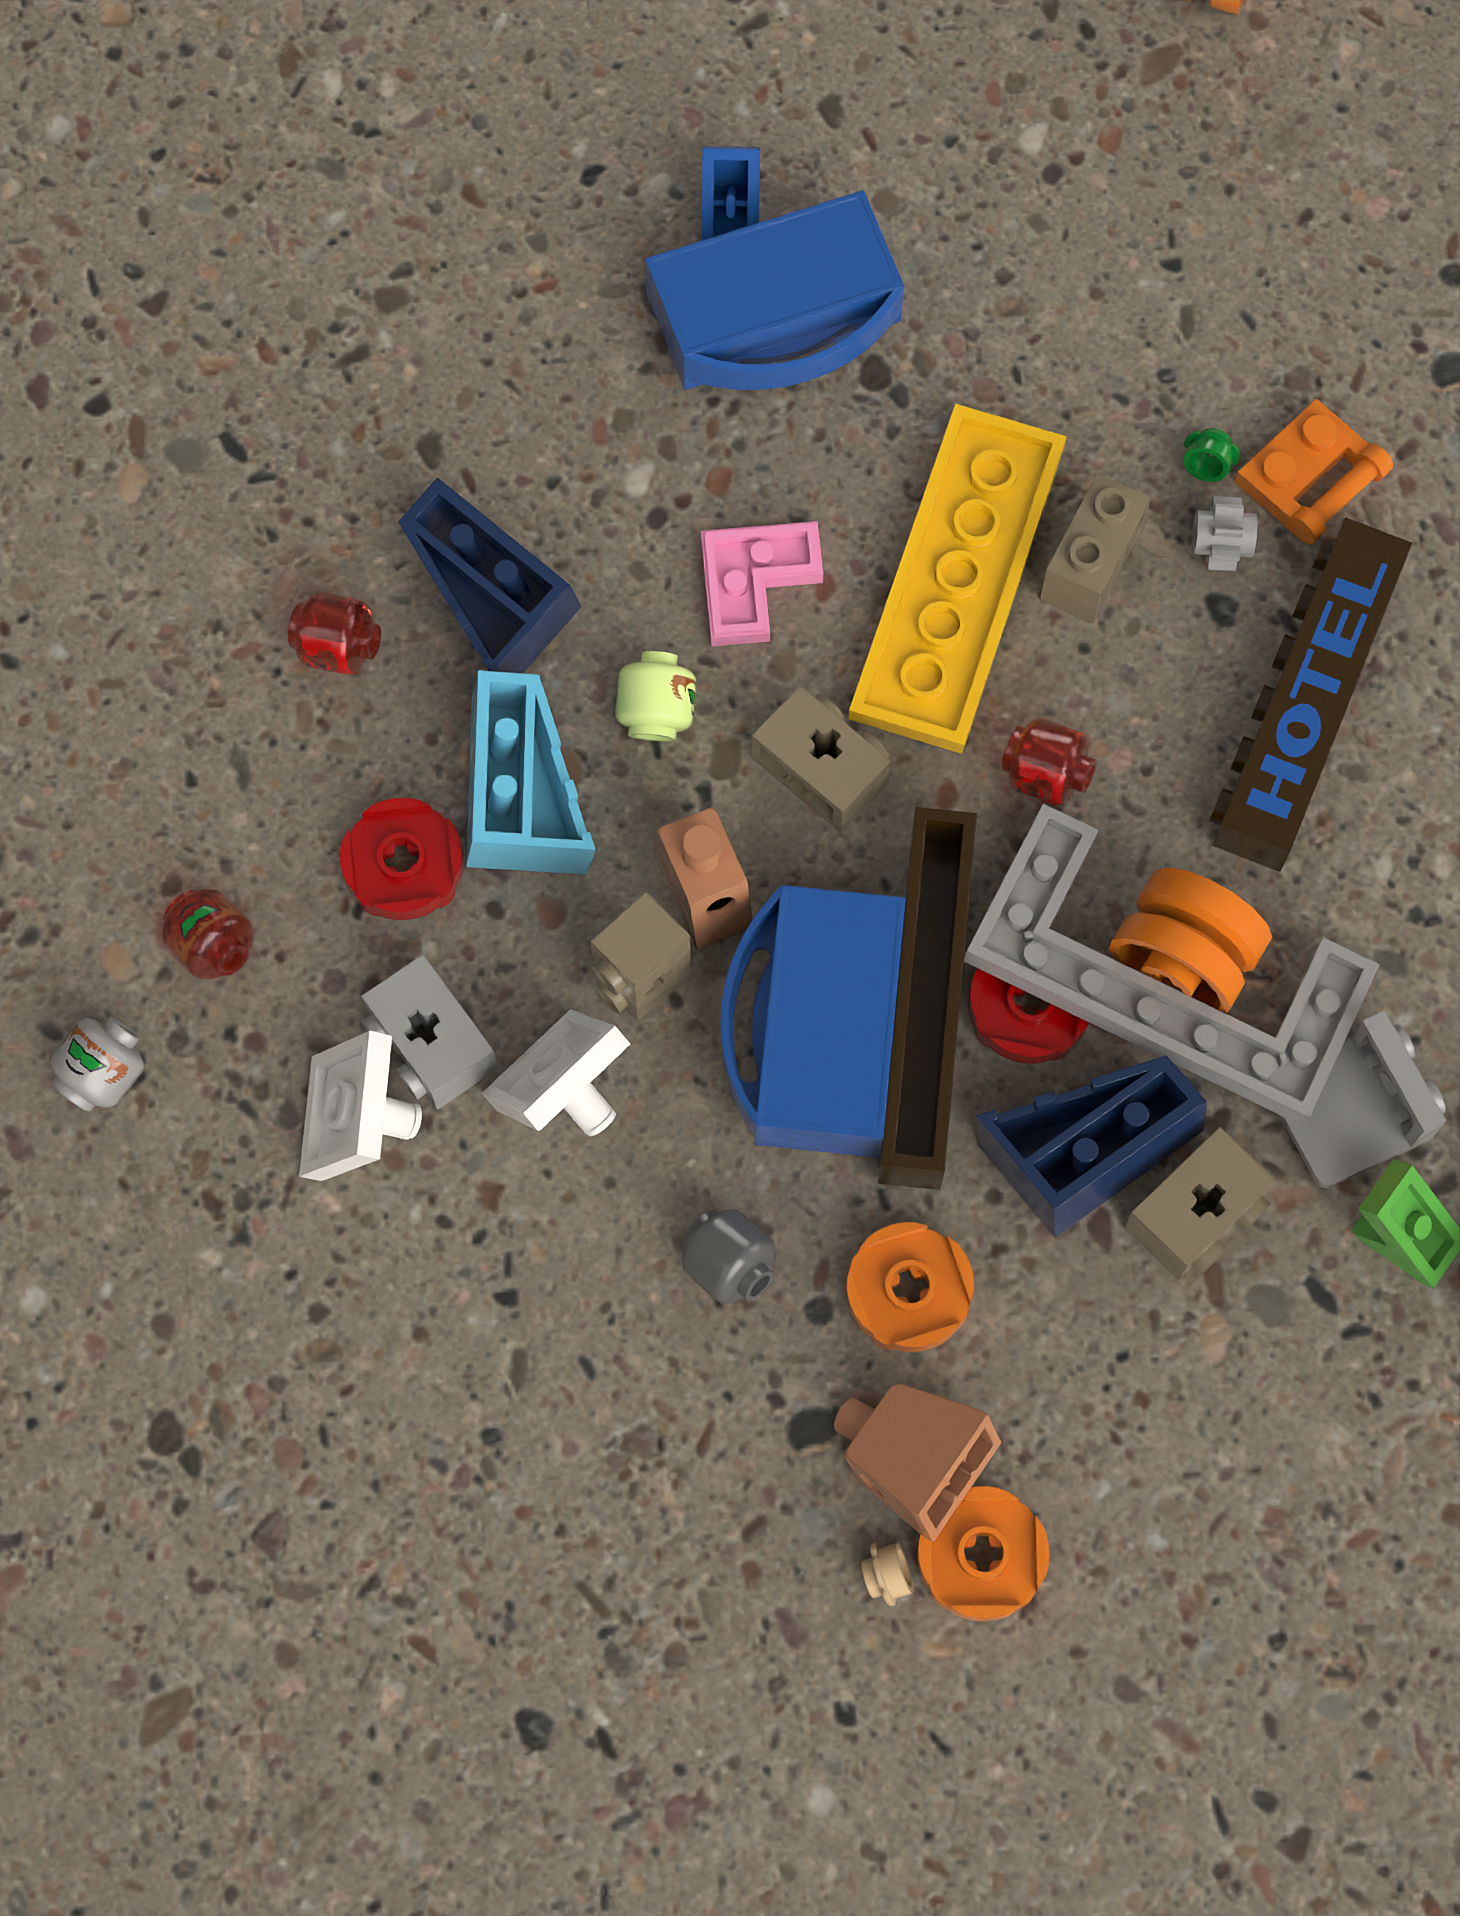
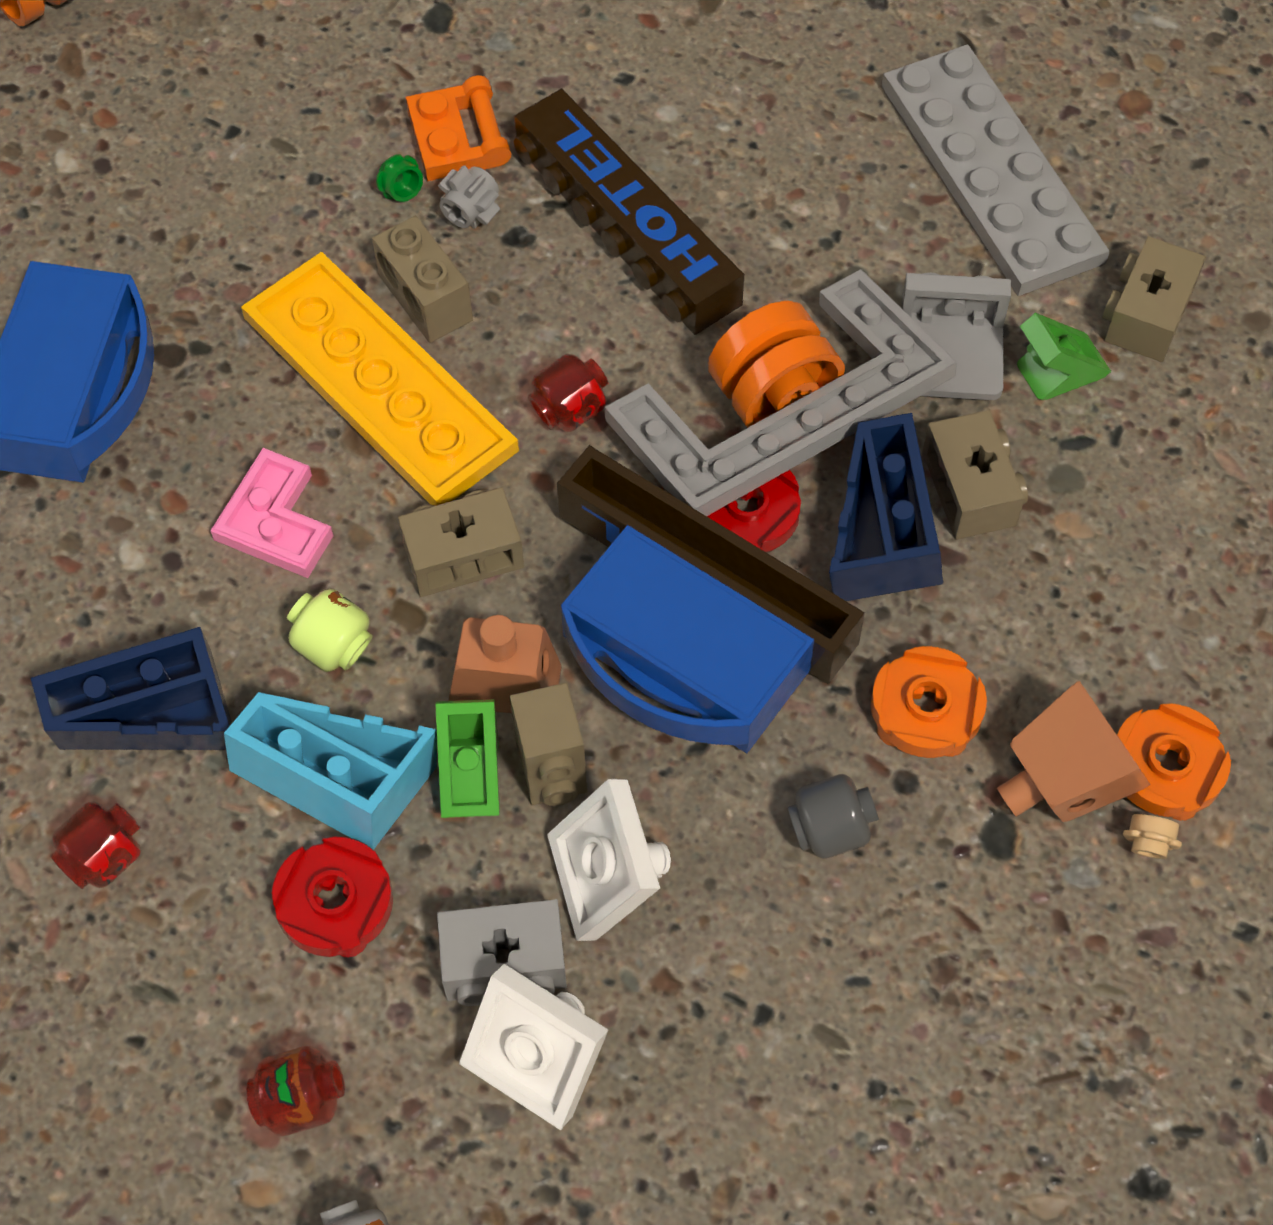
camera: 60 degrees left, 10 degrees down
(591, 895) = (468, 758): none -> bright green slope

